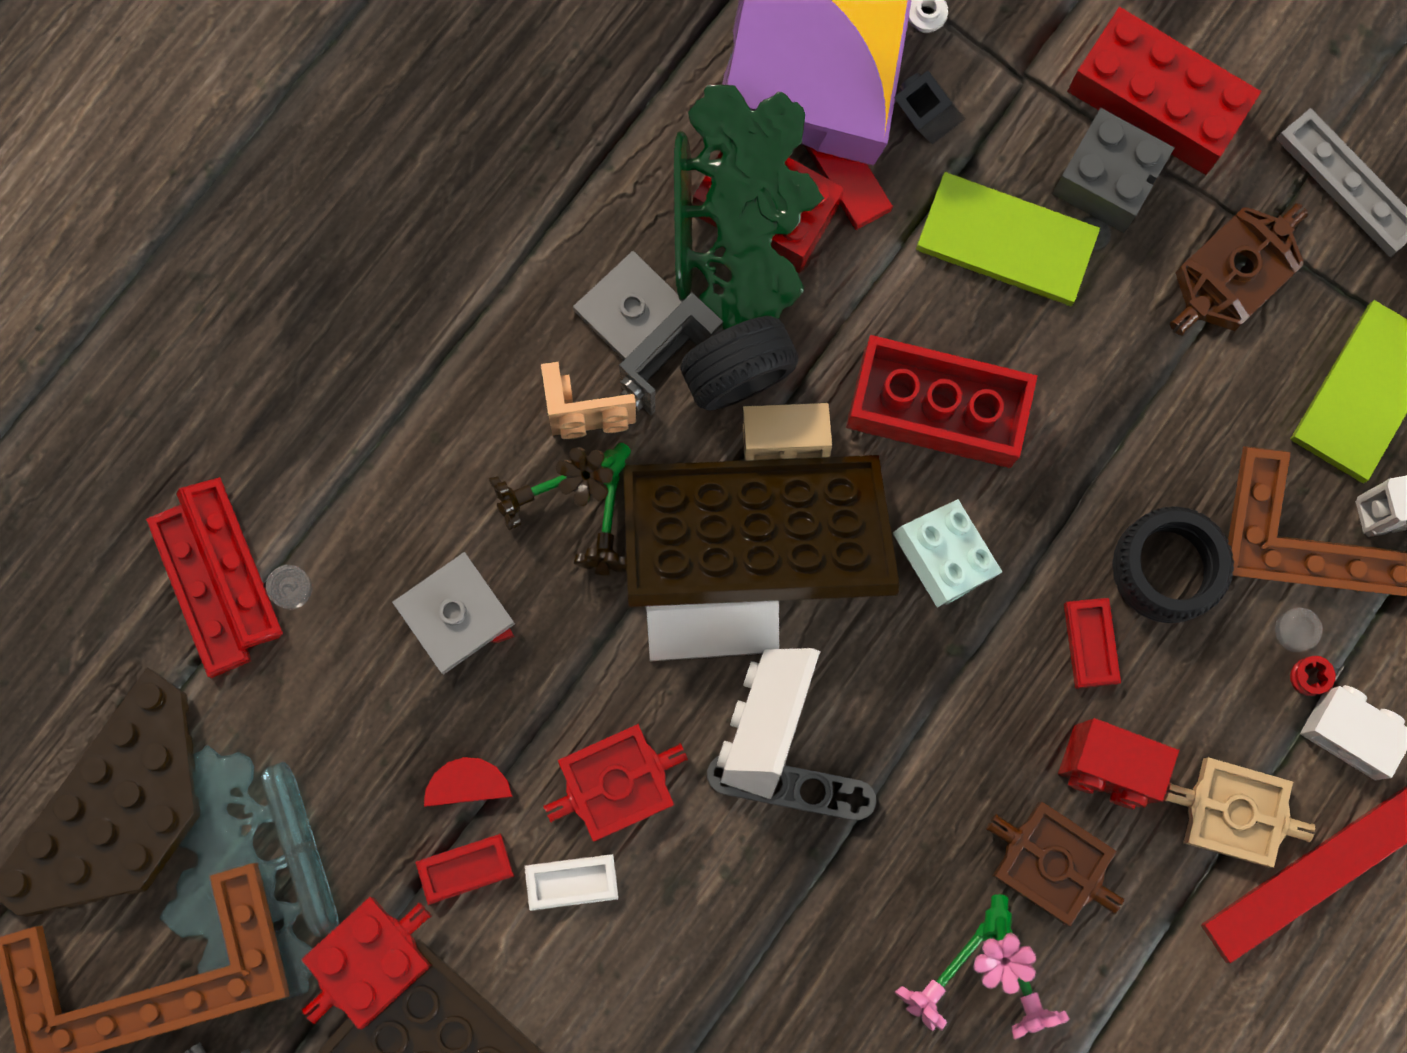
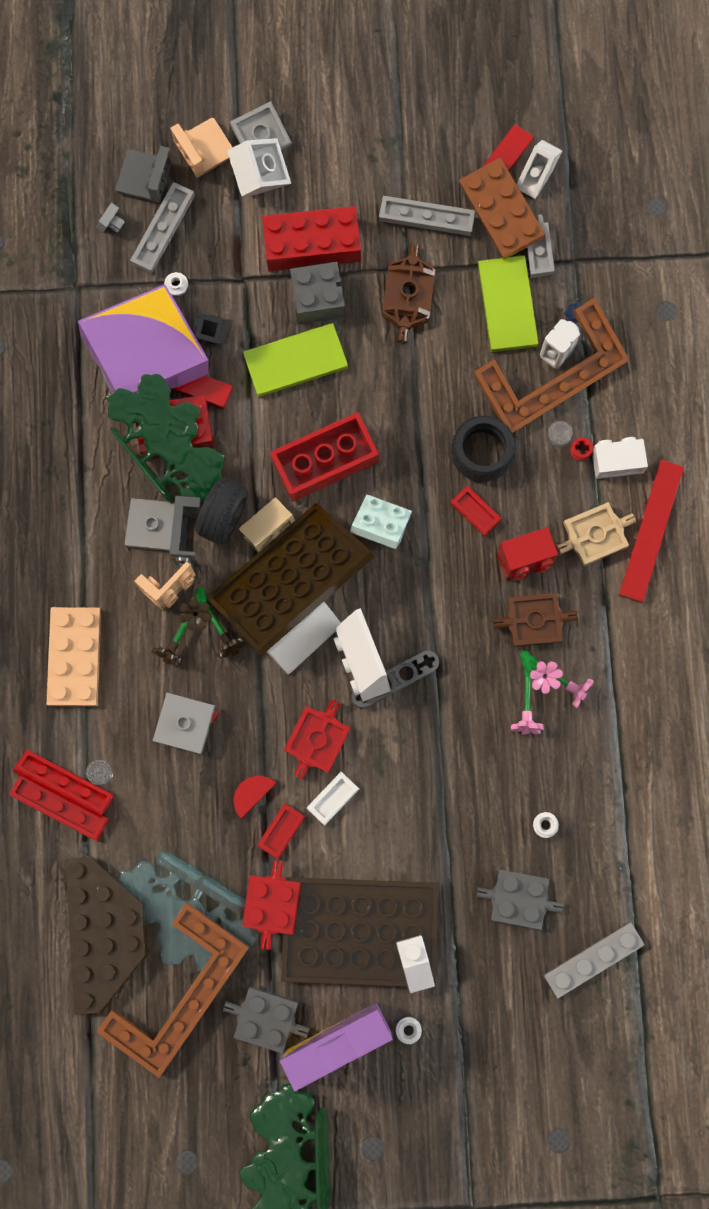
camera: 30 degrees left, 0 degrees up
(383, 403) = (74, 657): none -> light nougat plate

